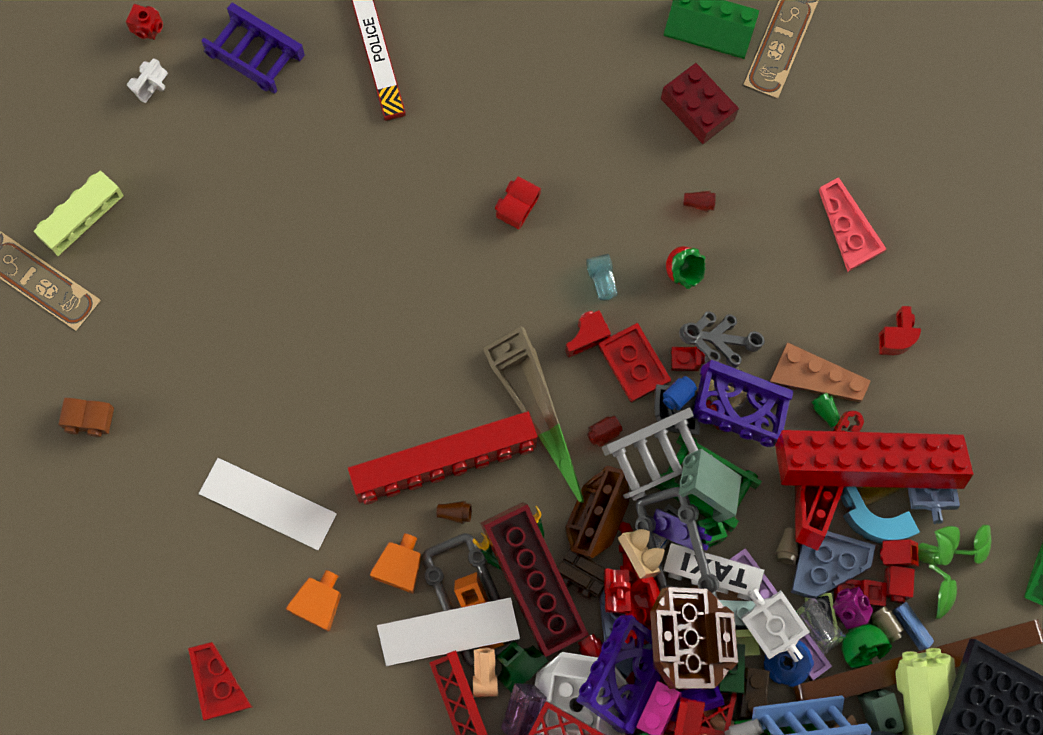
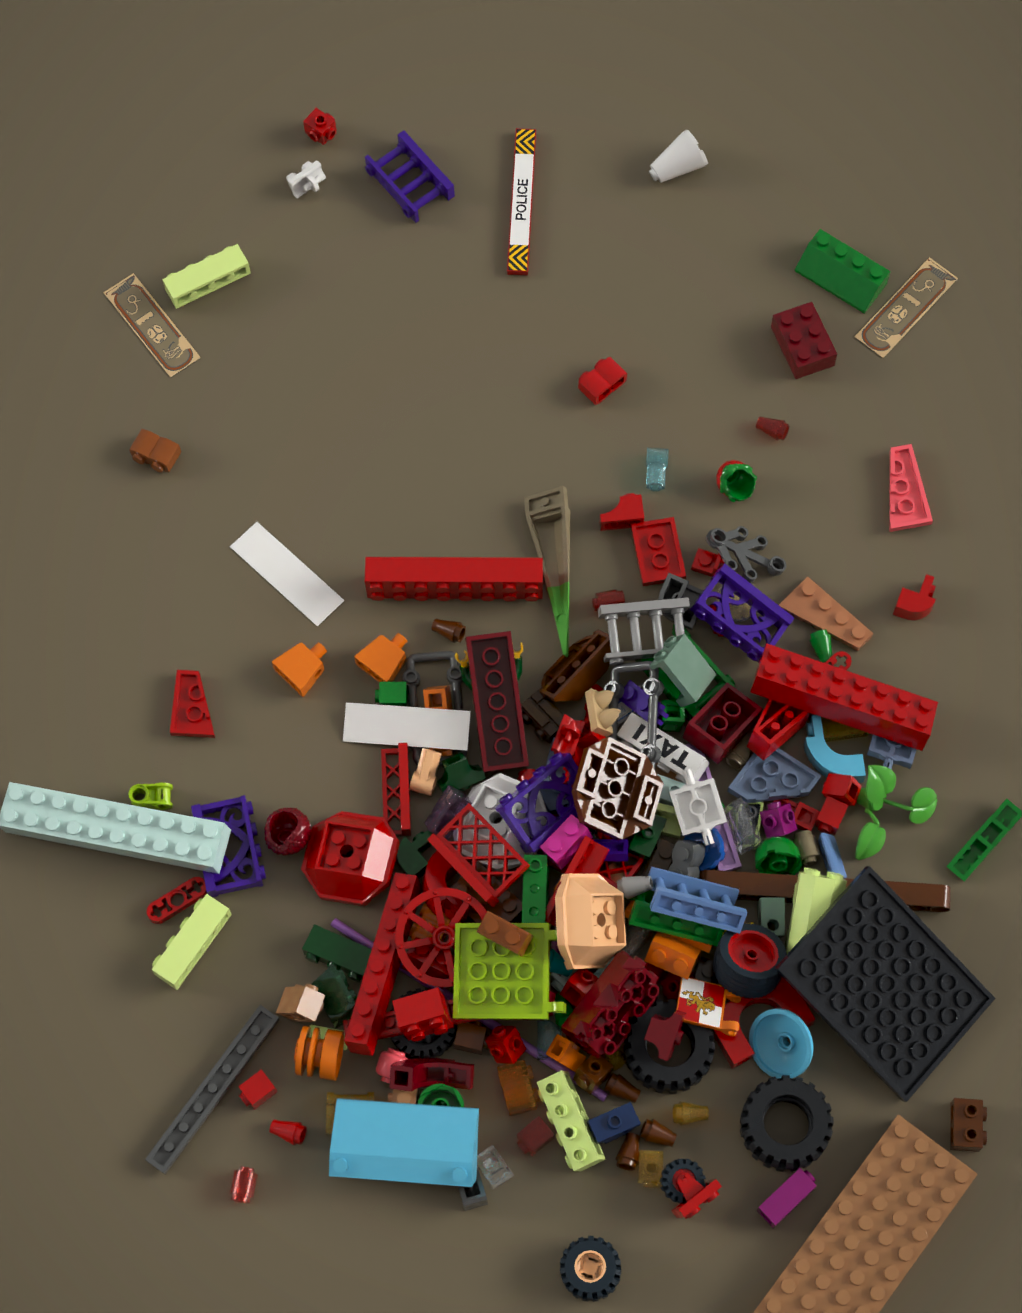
camera: 25 degrees right, 5 degrees down
(421, 602) = (391, 694): none -> green brick
(679, 393) = (685, 584): blue brick -> none
(763, 524) = (722, 723): none -> dark red brick
(779, 681) = (687, 858): none -> dark grey brick

